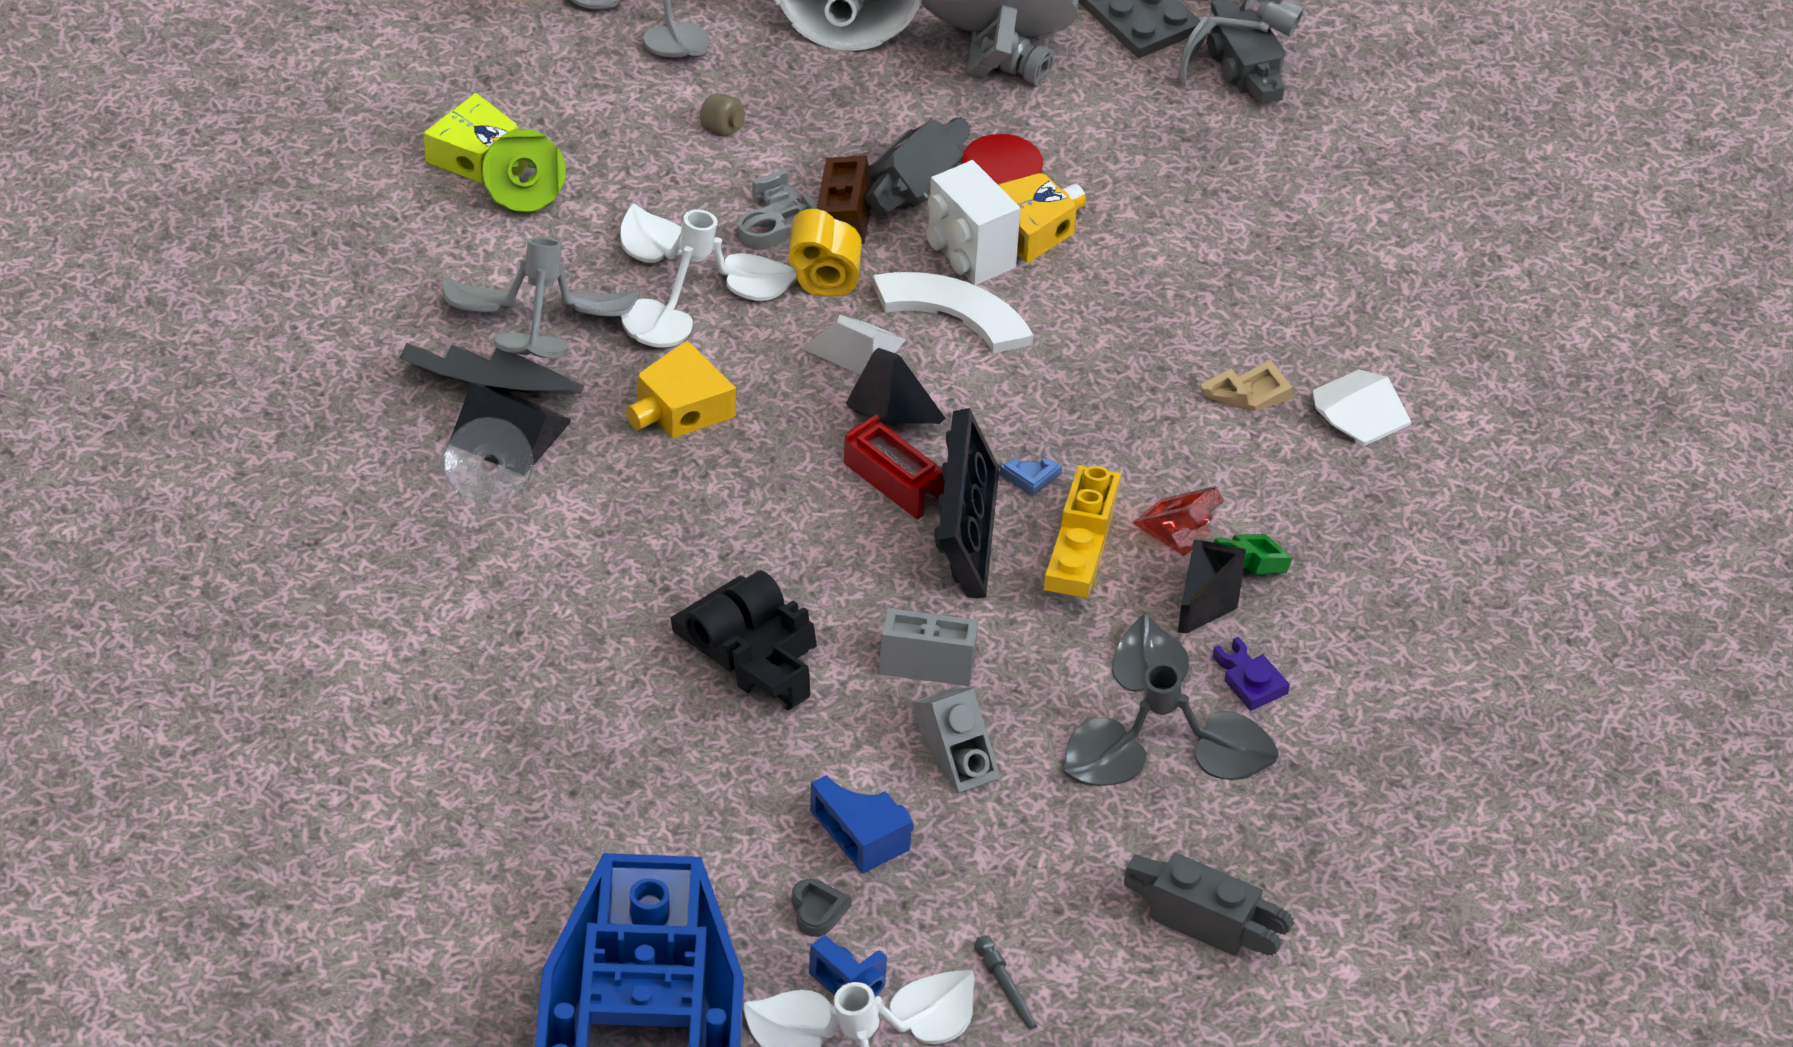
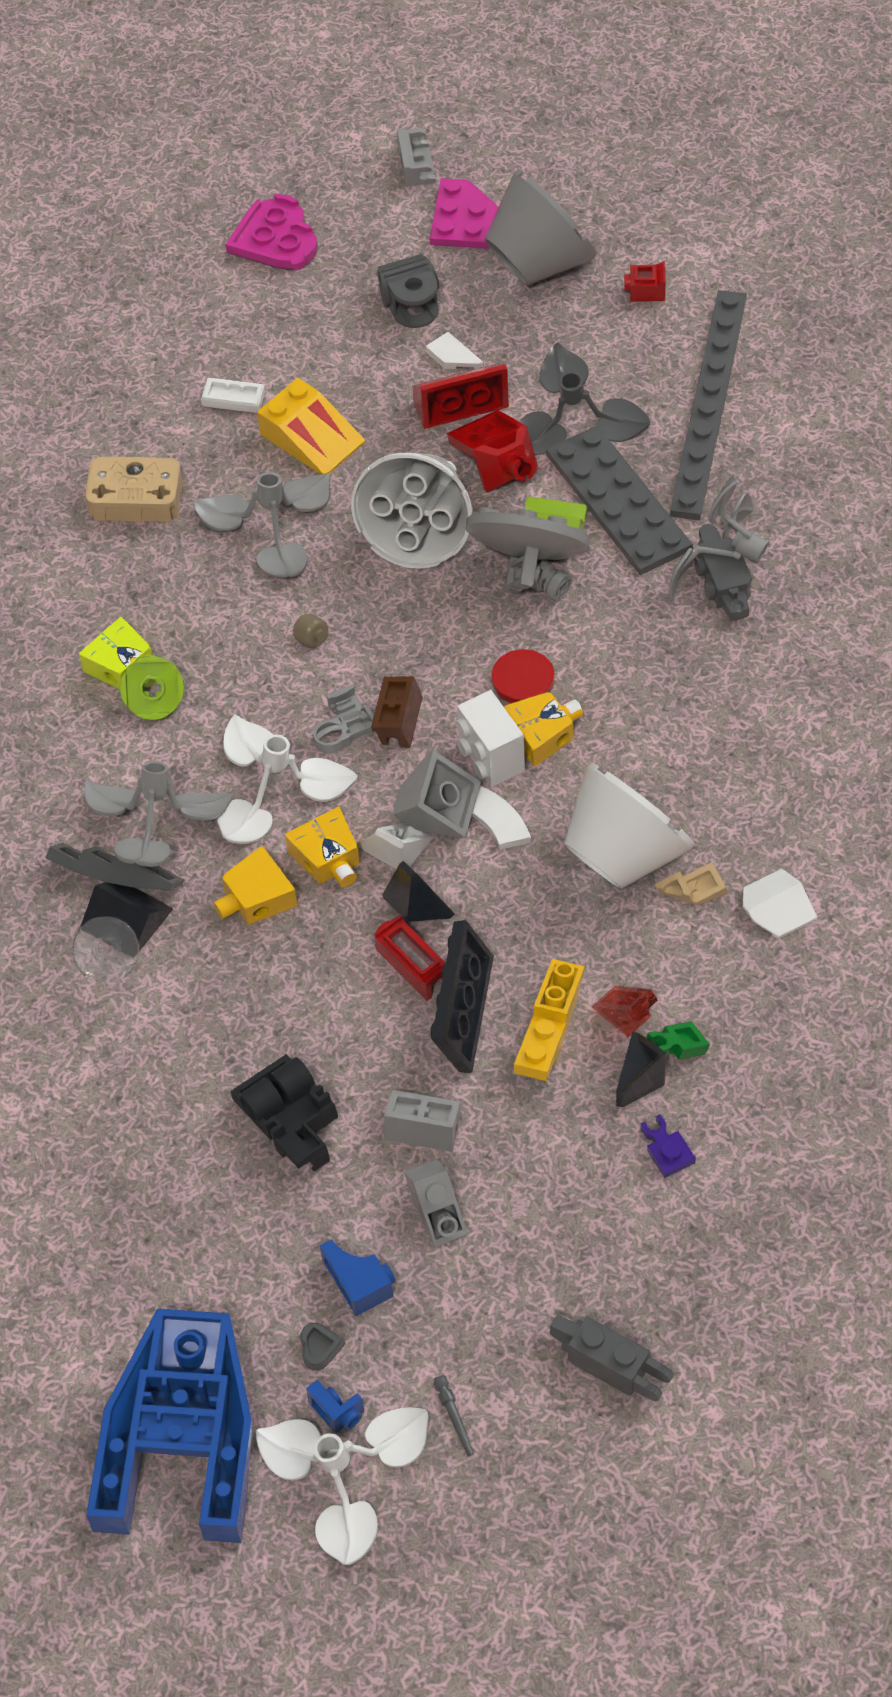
camera: 10 degrees right, 10 degrees up
(767, 347) = (325, 848): none -> yellow torso
(824, 253) = (374, 765): yellow piece -> none
(906, 167) = (452, 681): dark grey hinge -> none
(910, 287) = (438, 797): none -> light grey slope
(1031, 475) = (517, 962): medium blue tile -> none
(1156, 662) = (587, 1136): dark grey plant -> none
(1158, 310) = (621, 830): none -> white cone

